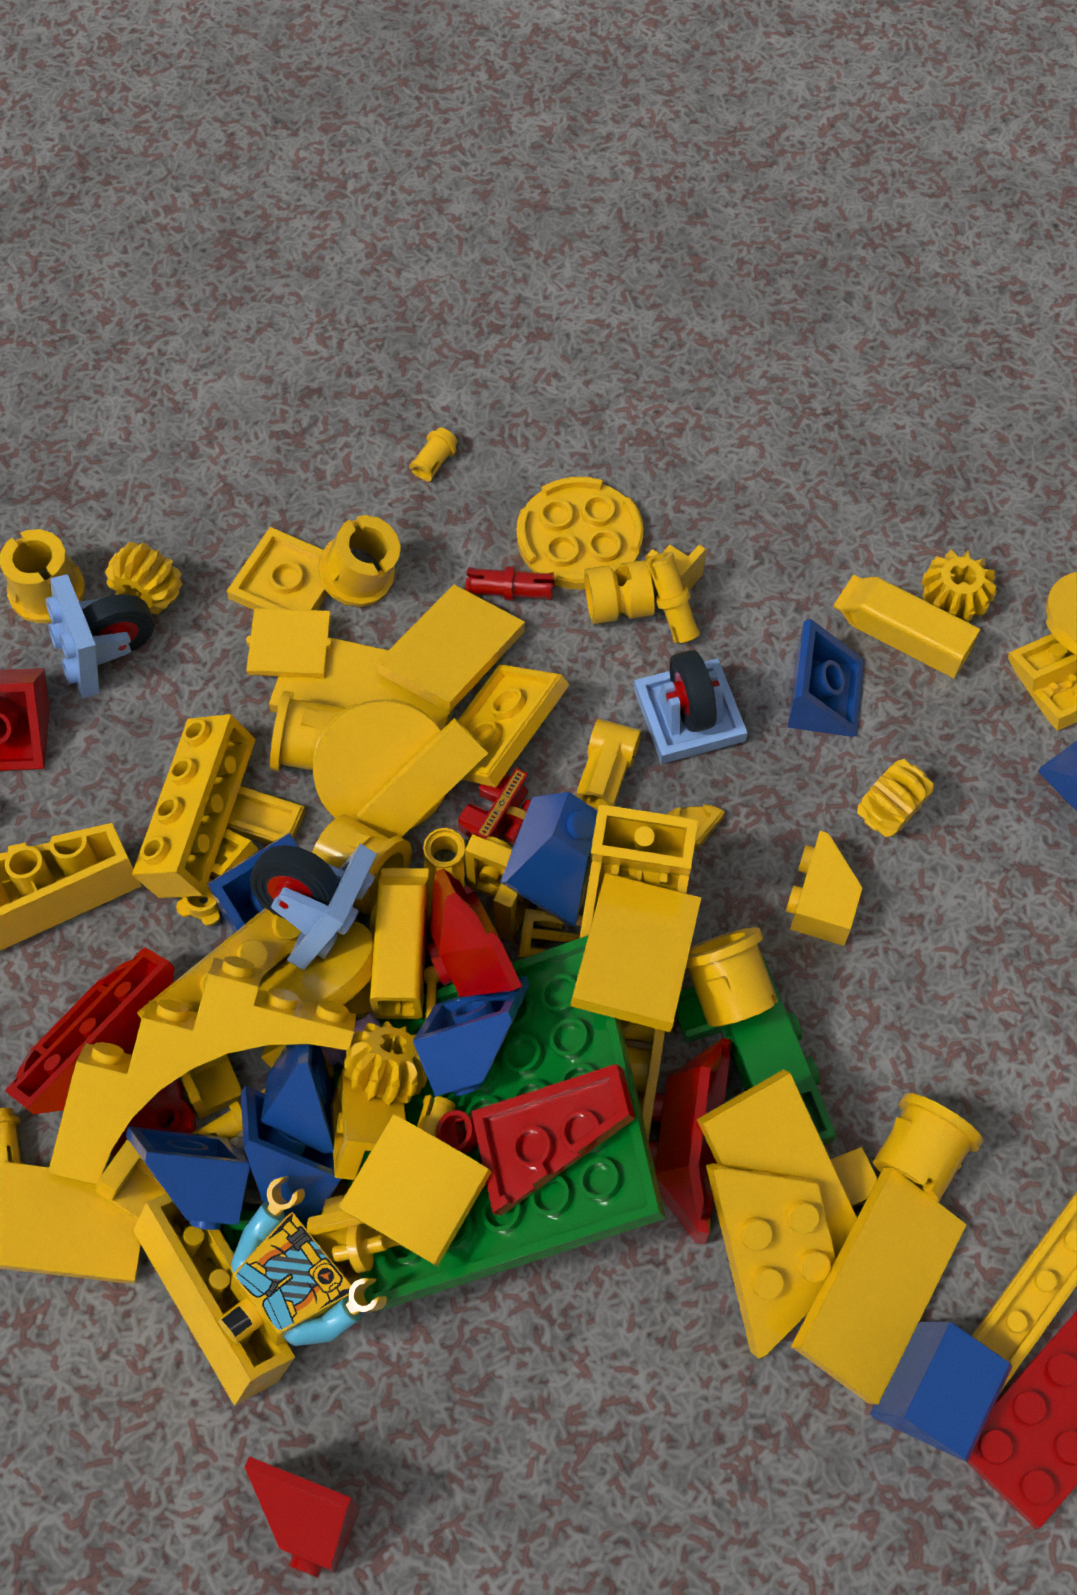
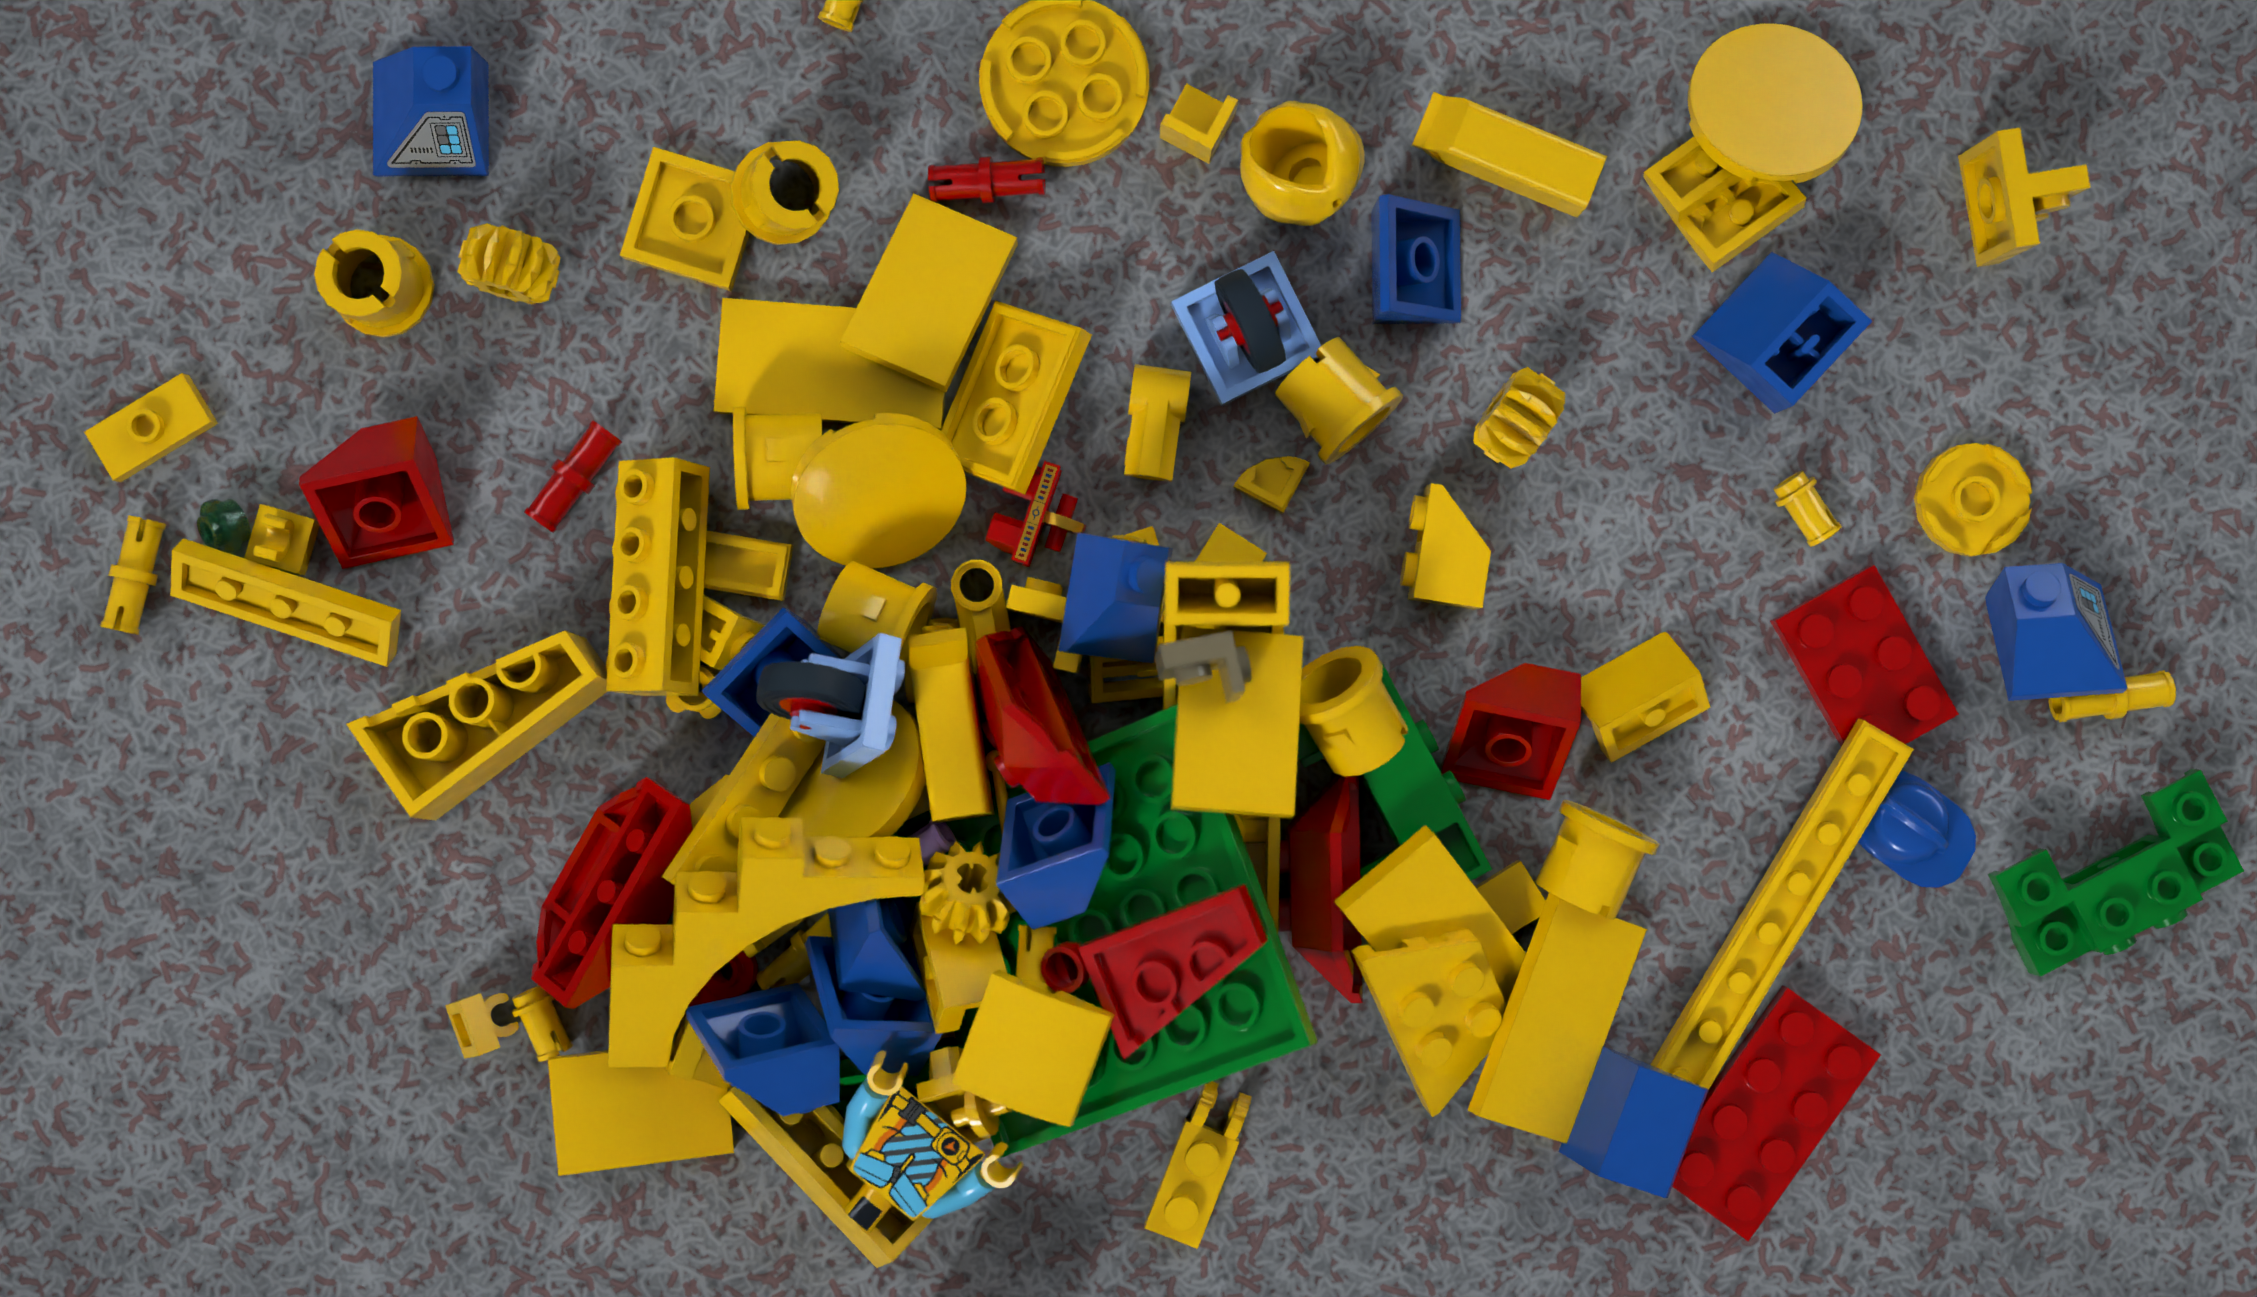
camera: 10 degrees left, 25 degrees up
(94, 631) = (467, 356): light blue plate -> none
(117, 482) = (431, 113): none -> blue slope
(149, 732) = (572, 476): none -> red pin
(288, 643) = (719, 320): yellow piece -> none
(423, 781) = (933, 505): yellow tile -> none
(538, 1372) = (1196, 1170): none -> yellow hinge
(617, 885) = (1194, 658): none -> dark tan bracket
(619, 592) = (1111, 179): yellow wheel -> none
(673, 597) = (1204, 177): yellow pin -> none
(747, 599) = (1300, 163): none -> yellow piece
(753, 764) = (1337, 399): none -> yellow piece
(866, 1037) = (1516, 731): none -> red slope
(959, 585) = (1588, 102): yellow gear -> none
(977, 1032) = (1642, 695): none -> yellow panel

